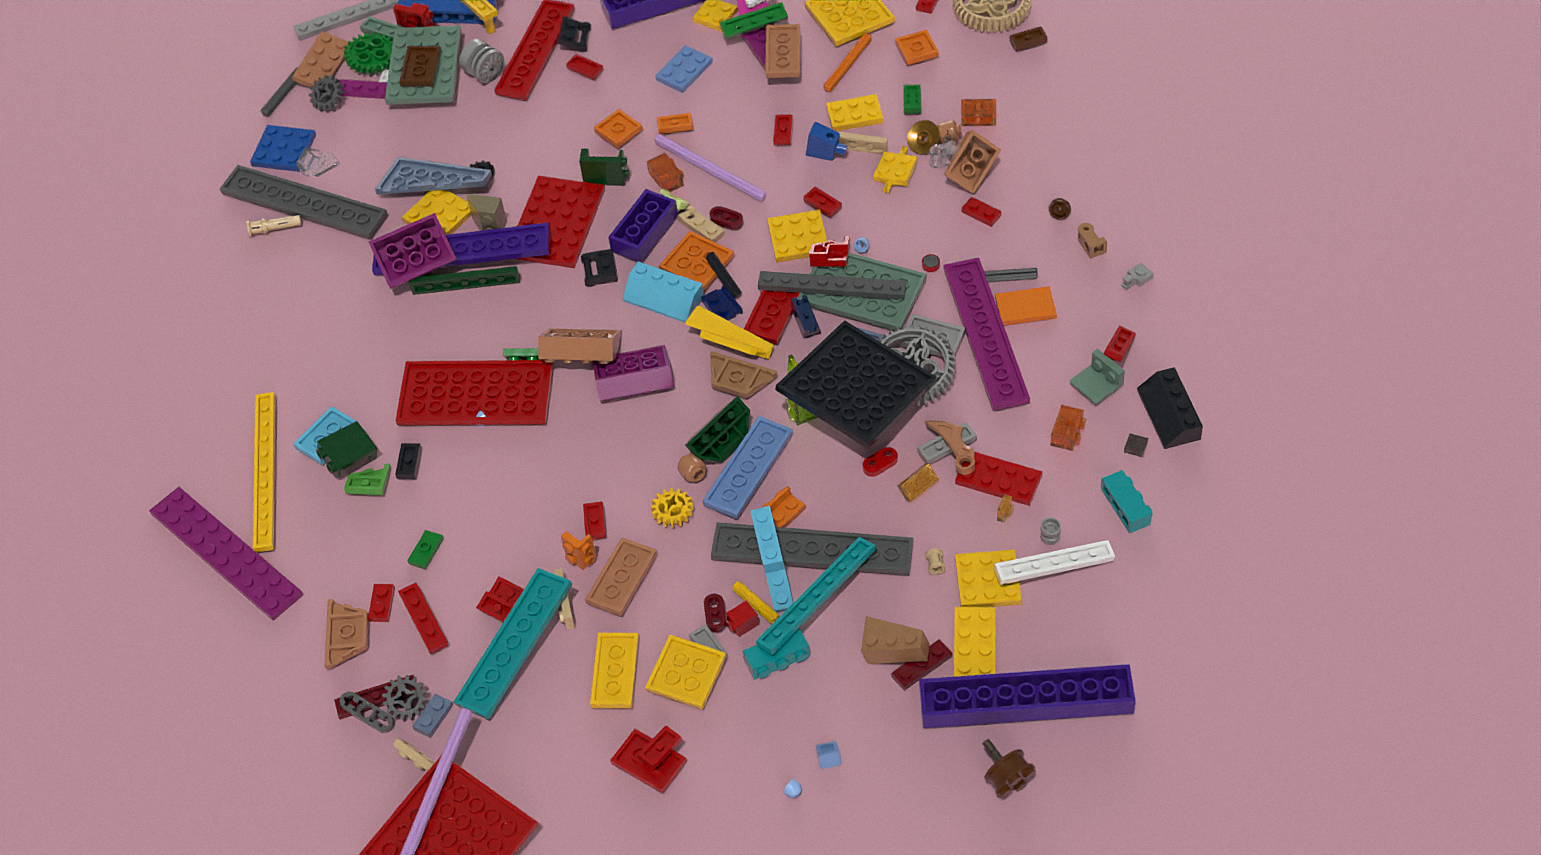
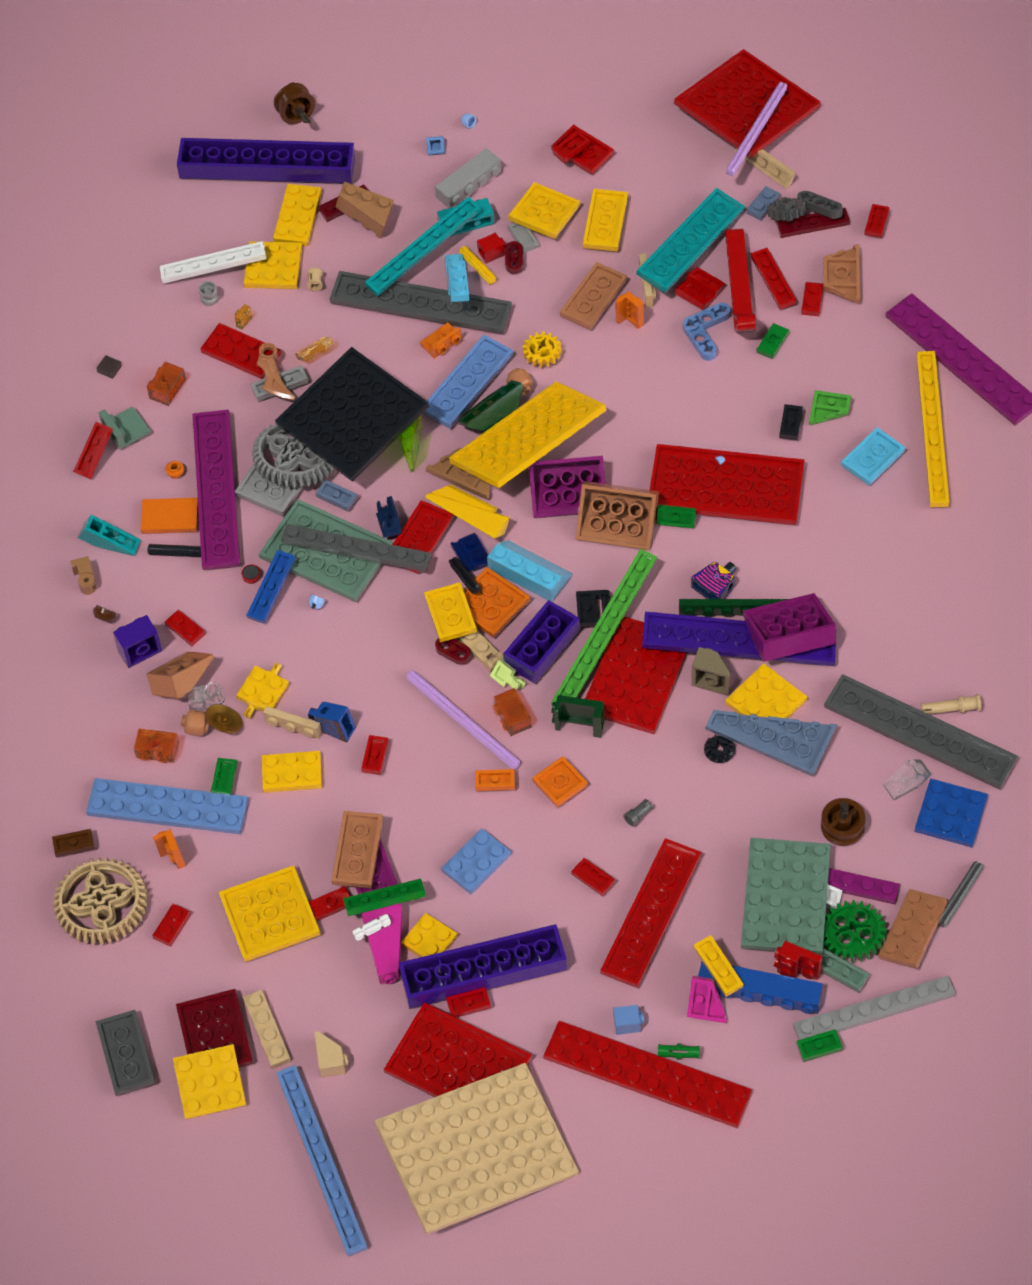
camera: 175 degrees left, 5 degrees up
(302, 702) = (877, 220): none -> red plate
(326, 93) = (903, 871): dark grey gear -> none
(346, 448) = (849, 428): dark green panel -> none
(374, 121) = (843, 821): none -> reddish brown wheel
(420, 66) = (787, 877): reddish brown tile -> none
(458, 594) = (739, 280): none -> red beam
(481, 60) = (714, 885): light grey wheel -> none
(485, 299) = (714, 580): none -> torso
(504, 553) = (700, 327): none -> medium blue beam
(552, 112) = (634, 815): none -> dark grey pin
(568, 34) = (608, 926): black plate -> none
(584, 243) = (607, 625): none -> bright green plate
(594, 520) = (615, 347): red plate -> none
(674, 399) = (527, 434): none -> yellow plate
(731, 236) = (450, 612): none -> yellow plate
(780, 704) = (468, 178): none -> light grey brick
(795, 234) = (380, 623): yellow plate -> none
(807, 24) = (329, 903): none -> red plate
(822, 201) = (348, 656): red plate -> none
(830, 253) = (350, 582): red slope -> none
(847, 62) = (286, 841): orange axle -> none
(906, 244) = (271, 586): none -> blue plate
(917, 47) = (202, 848): orange plate -> none
(942, 33) = (167, 845): none -> orange bracket
(958, 76) = (167, 806): none -> medium blue plate
(1018, 179) = (137, 641): none -> dark purple brick
(1033, 348) = (174, 473): none -> orange plate
(1082, 273) = (106, 536): none -> teal slope
(1126, 501) = (134, 312): teal brick -> none
(1137, 275) = (50, 534): light grey plate -> none
(1170, 409) = (67, 391): black slope -> none

